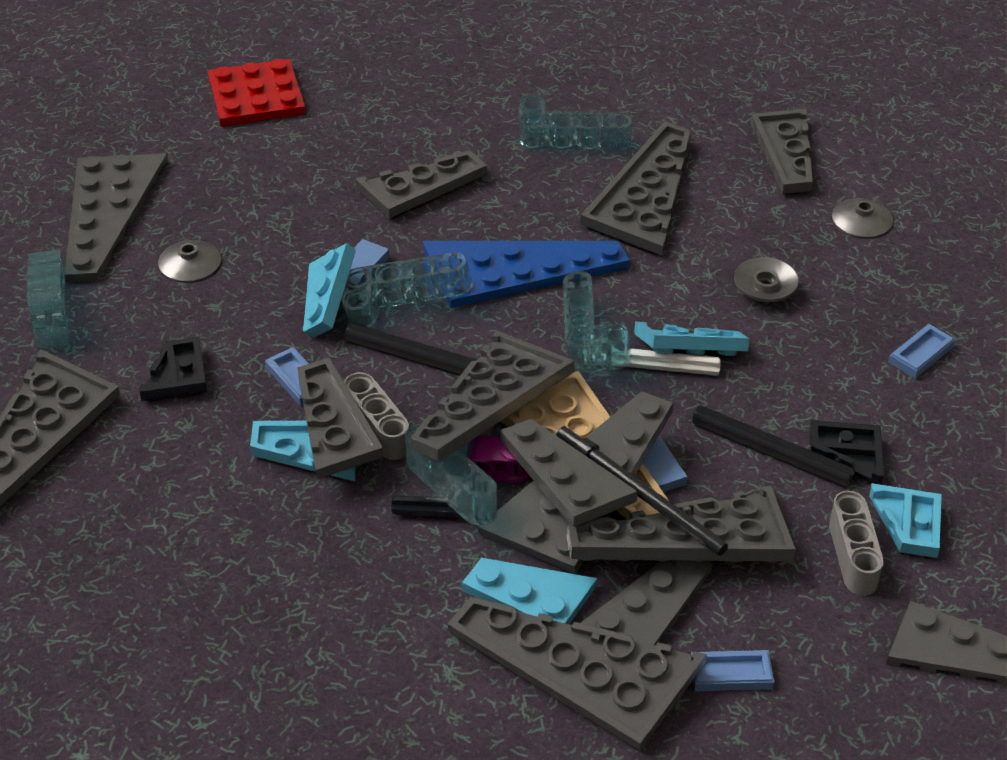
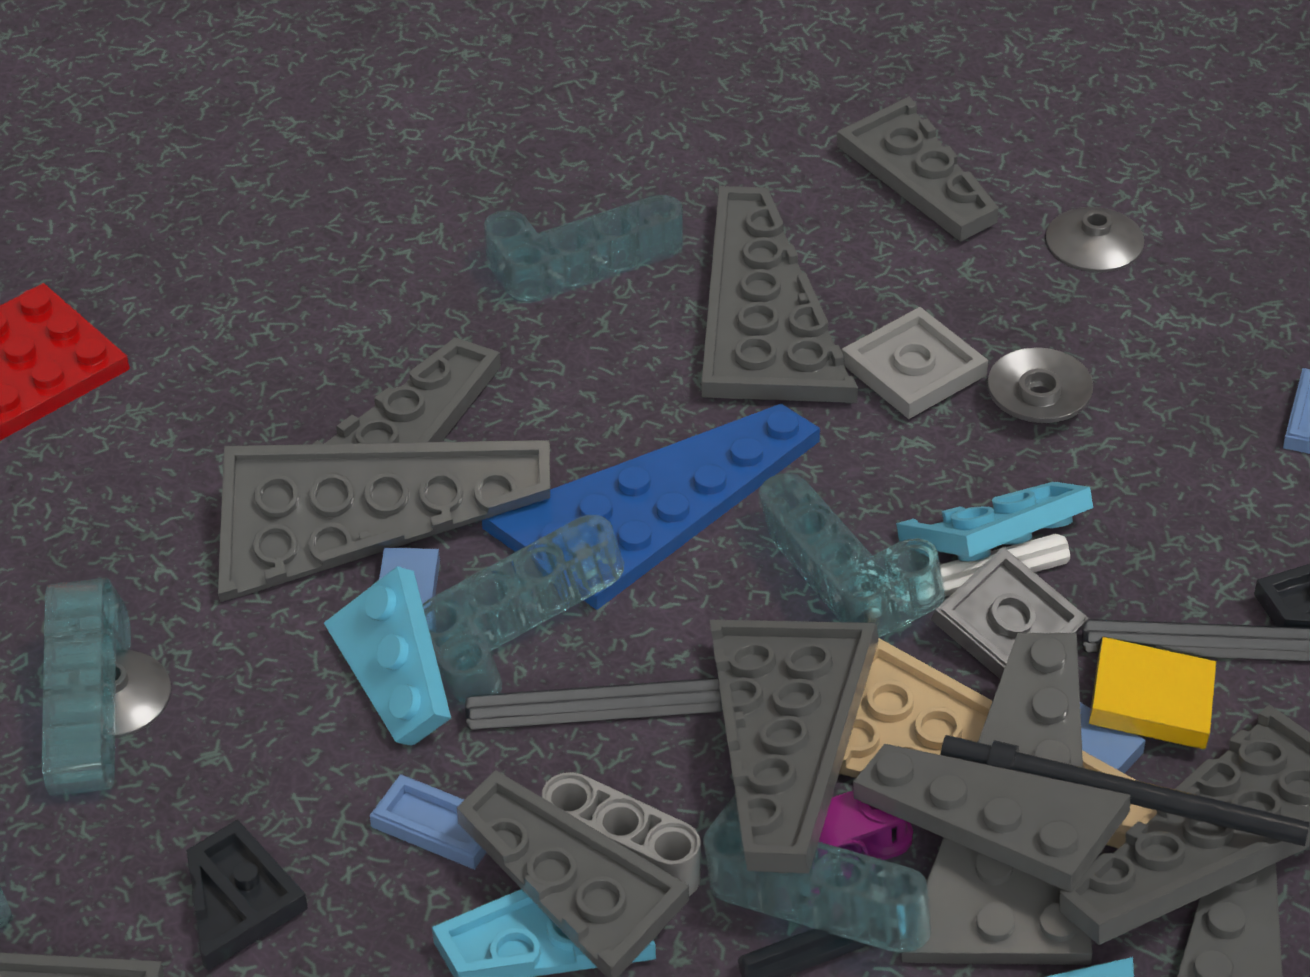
camera: 25 degrees left, 0 degrees up
(169, 241) = (81, 638): none -> clear light blue beam
(352, 208) = (332, 504): none -> dark grey wing
(662, 377) = (998, 604): none -> flat silver tile
(706, 245) = (914, 362): none -> light grey plate
(709, 455) = (1153, 693): none -> yellow tile

